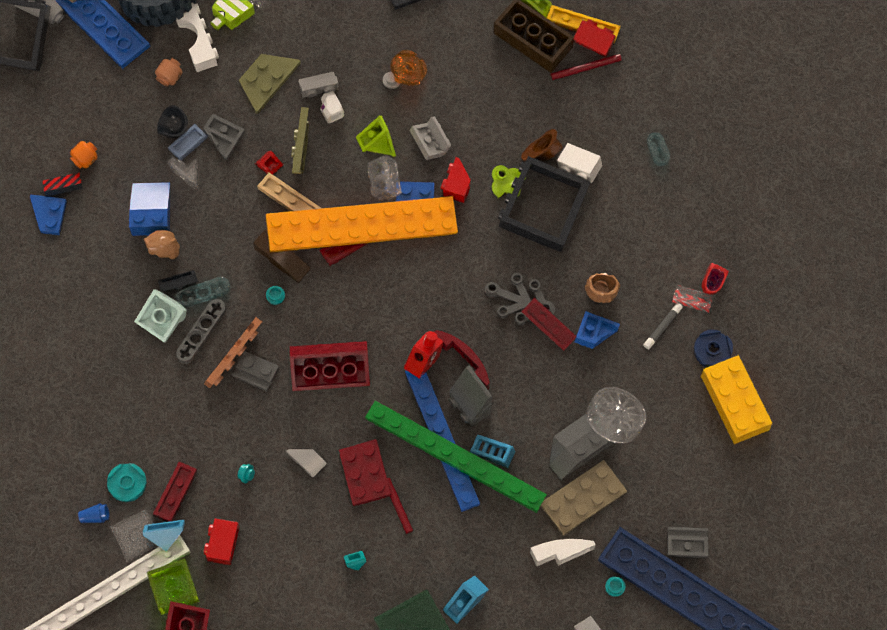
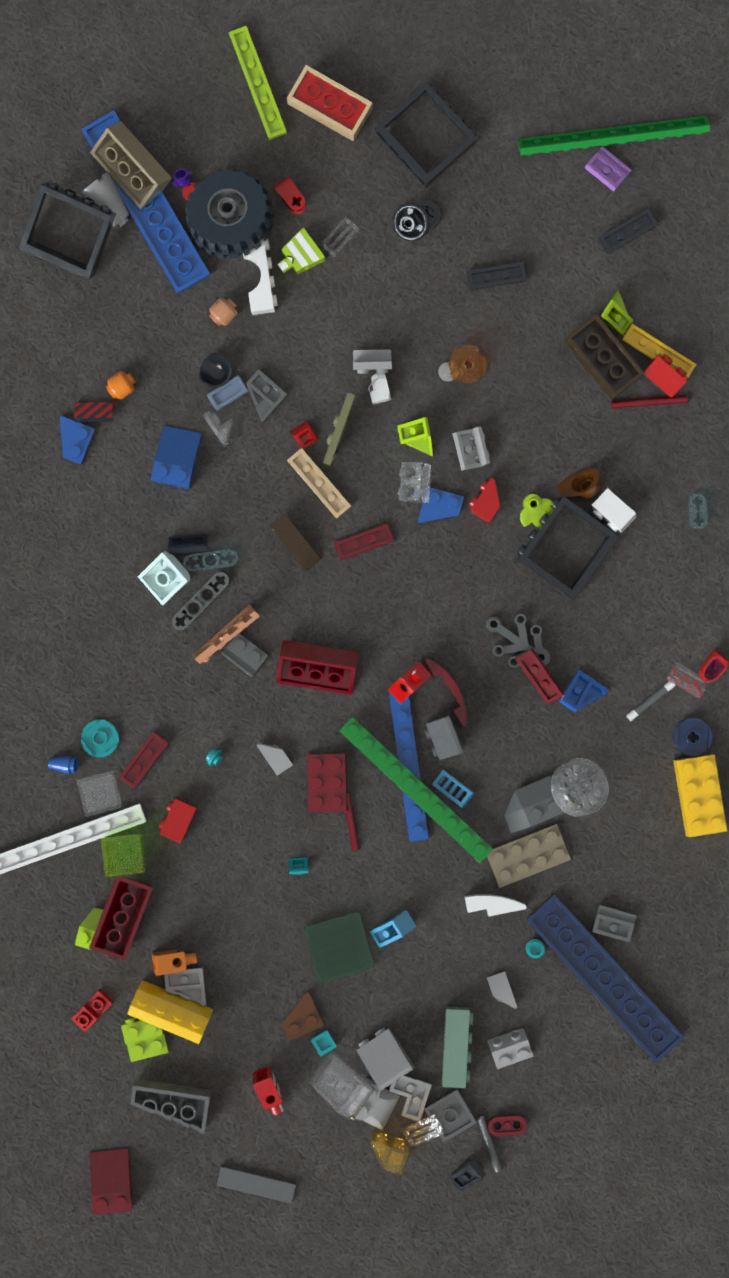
camera: 15 degrees right, 20 degrees up
(162, 244) = (179, 504): medium nougat hair -> none
(164, 533) = (125, 800): dark azure slope -> none
(266, 78) = (320, 339): olive wing -> none
(275, 295) = (280, 580): teal plate -> none
(361, 224) = (380, 528): light orange plate -> none
(602, 287) = (601, 650): medium nougat hair -> none

